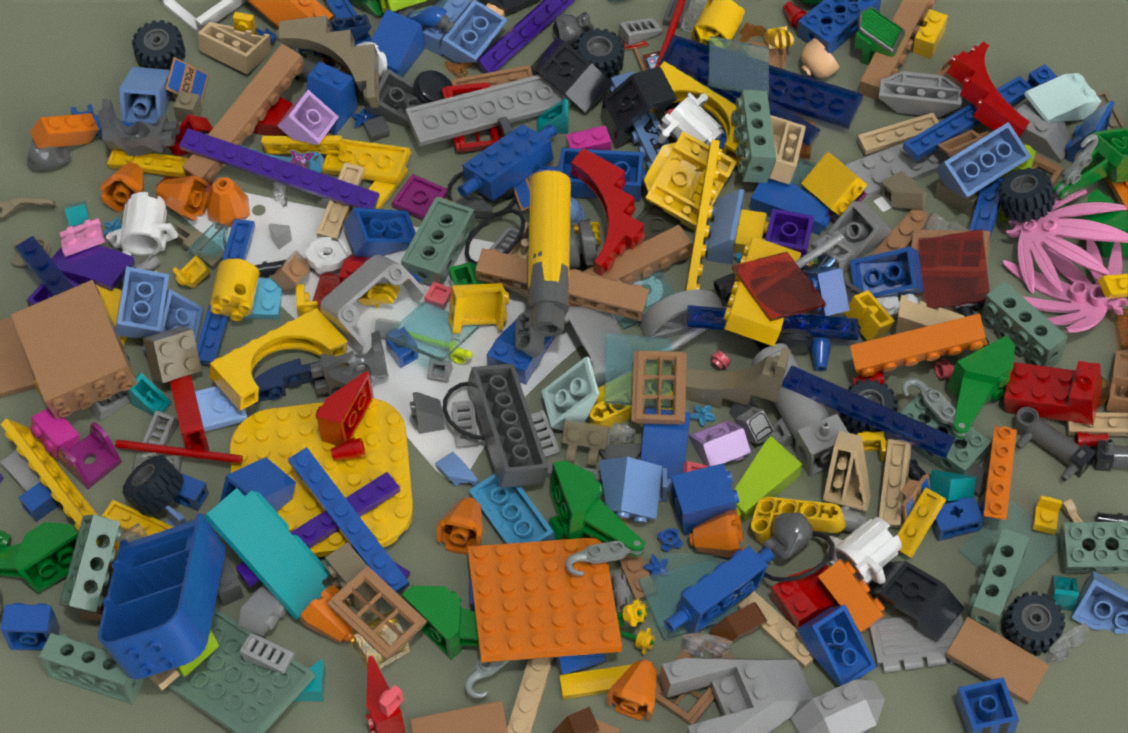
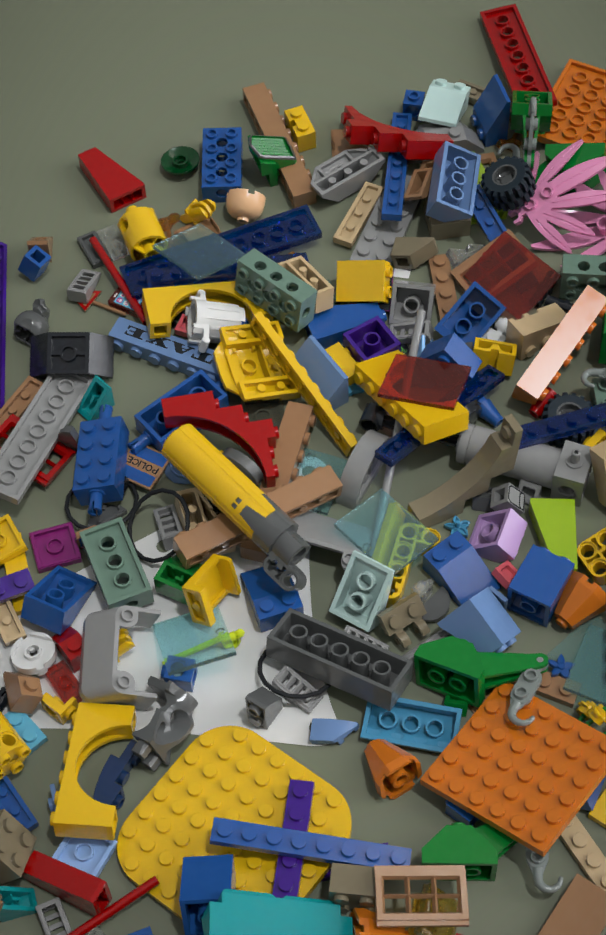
camera: 45 degrees left, 0 degrees up
(344, 410) = (206, 773): red slope -> none
(350, 449) = (240, 788): red cone -> none
(384, 326) = (148, 668): light grey slope -> none
(438, 295) = (164, 604): coral plate -> none
(439, 370) = (228, 667): light grey slope -> none
(594, 138) = (146, 392): dark pink brick -> none
(602, 50) = (76, 317): black wheel -> none
(621, 591) = (565, 707): light grey pin -> none
(633, 100) = (155, 338): black slope -> none
(670, 533) = (543, 632): blue plate -> none
(678, 397) = (405, 544): medium nougat piece -> none
(720, 360) = (425, 476): coral plate -> none
(793, 13) = (188, 187): red cone -> none
(944, 369) = (581, 355): coral plate -> none

